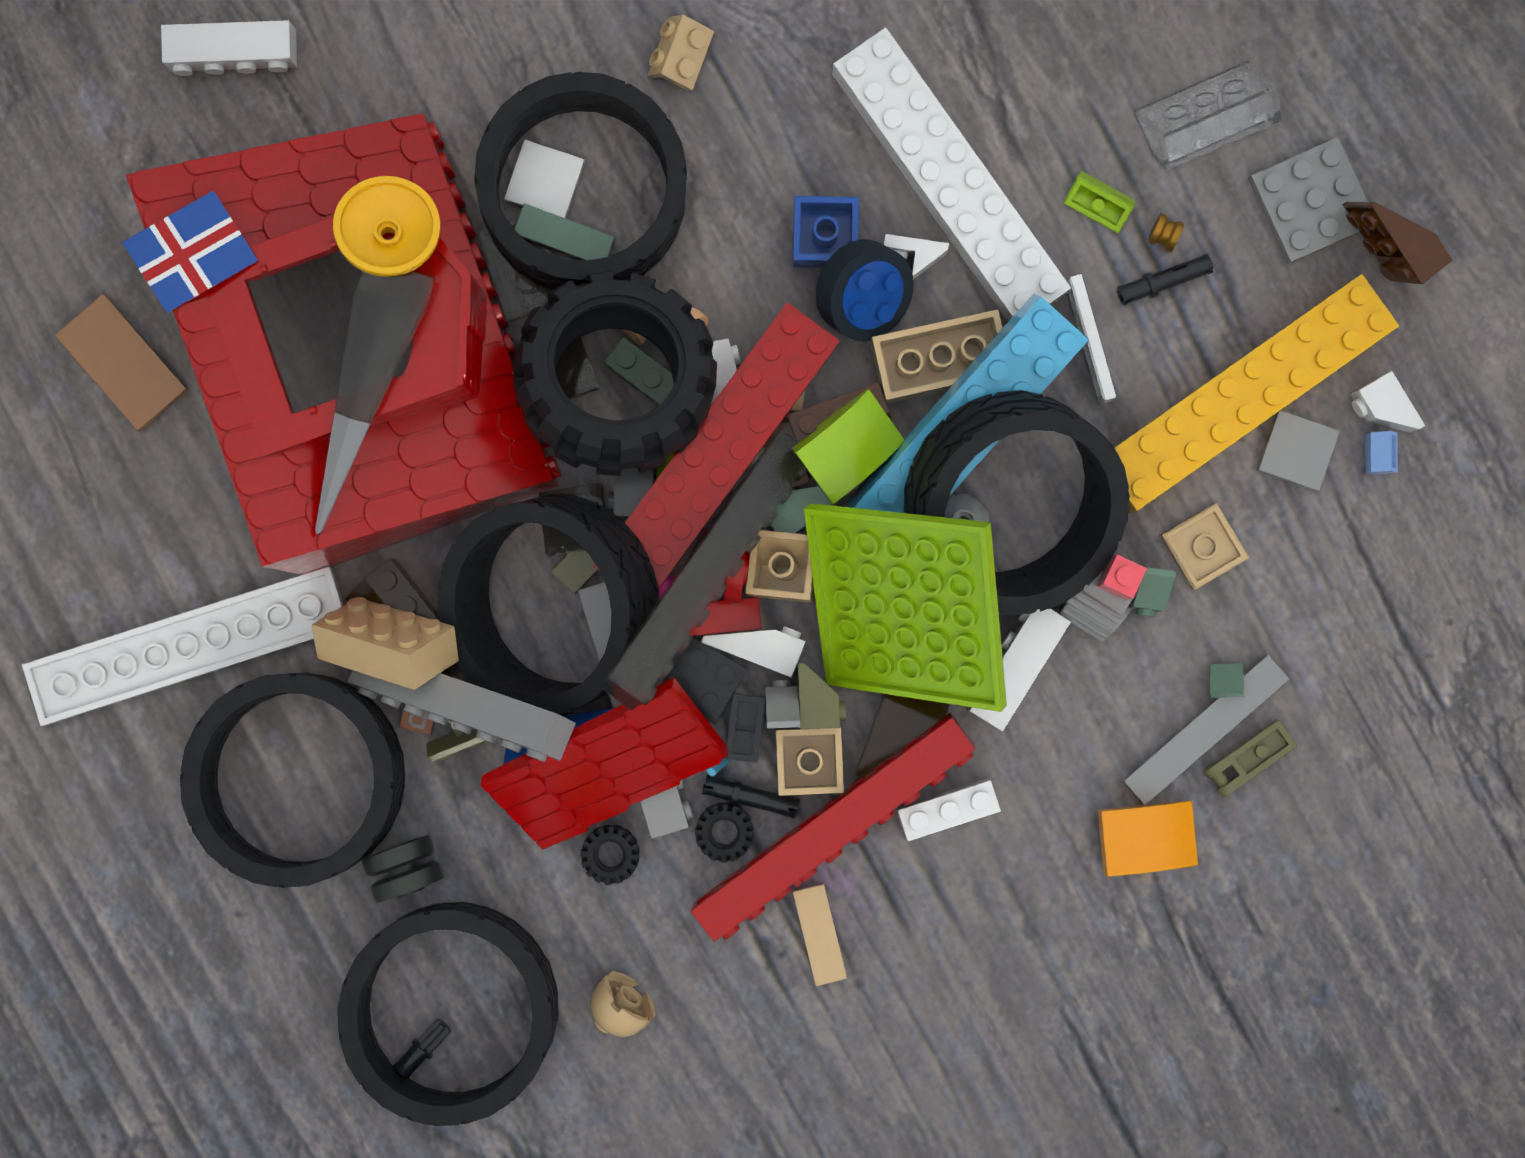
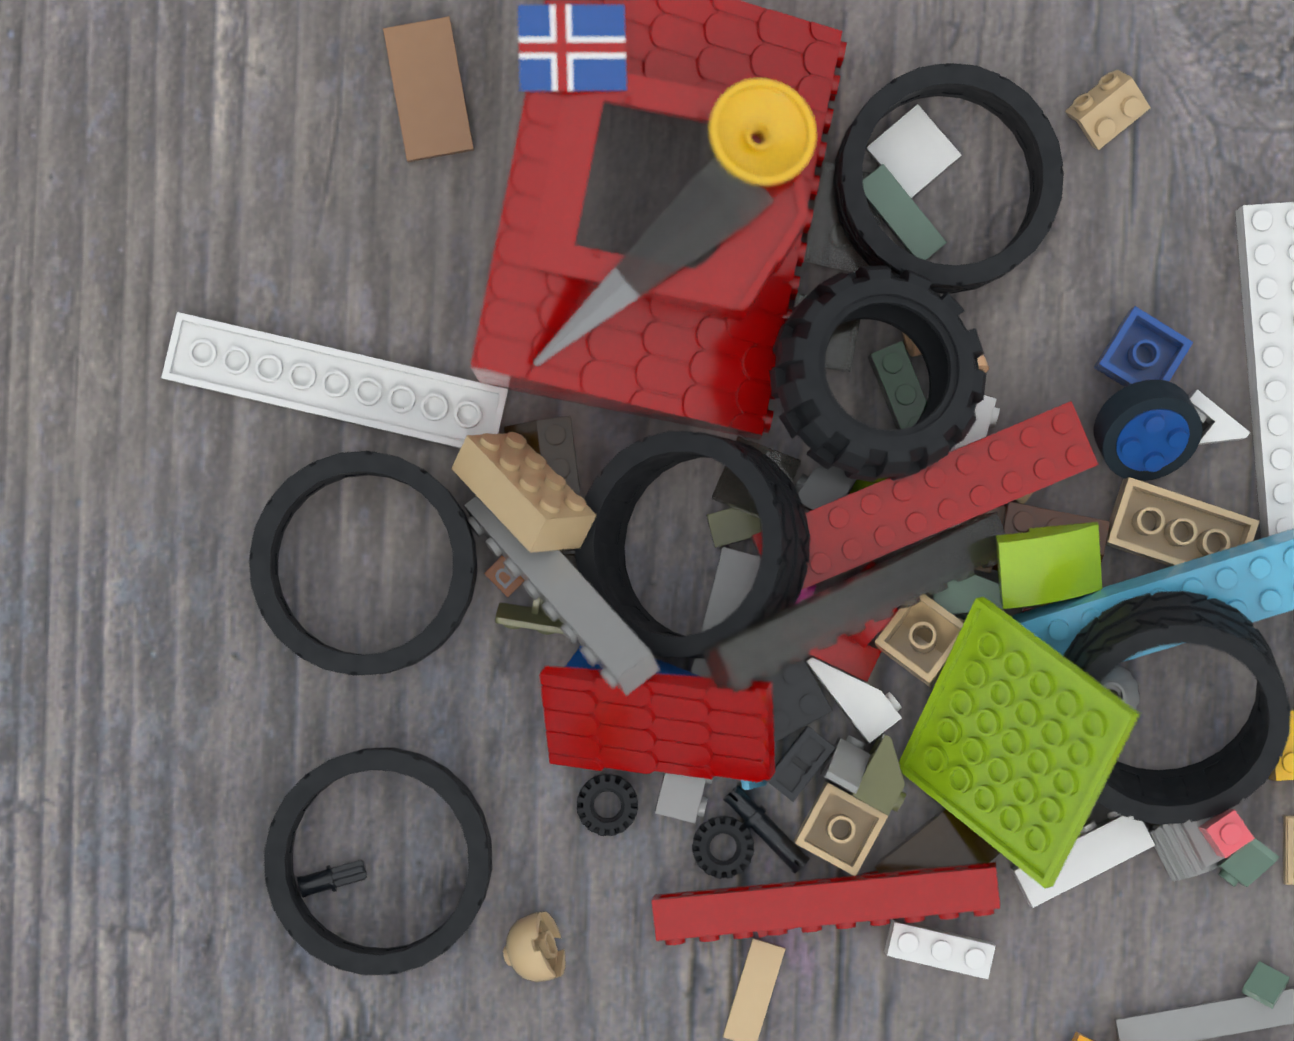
camera: 30 degrees right, 0 degrees up
(402, 868) = (413, 707): pearl dark grey wheel -> none

